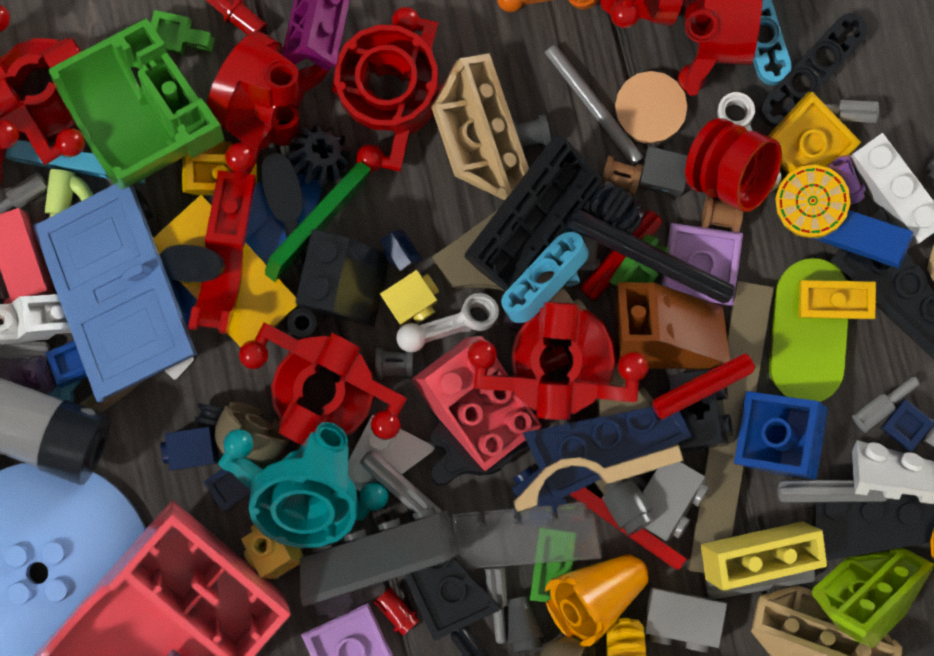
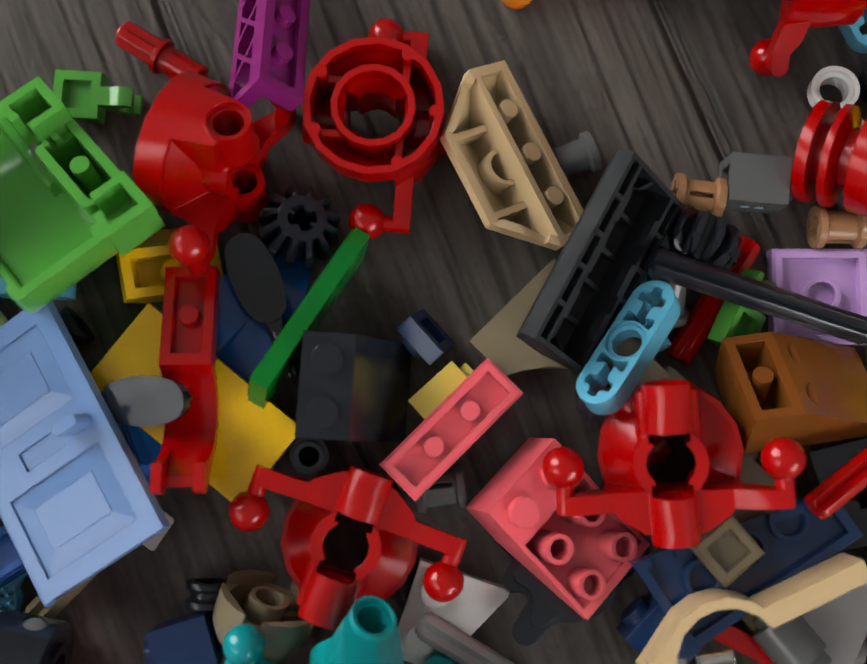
camera: 10 degrees left, 0 degrees up
(408, 318) = (451, 429): none -> coral tile
(412, 336) = (518, 419): white piece -> none
(590, 430) = (727, 551): none -> dark tan tile
(594, 104) = (646, 110): light grey piece -> none
(650, 107) = (720, 103): light nougat tile -> none

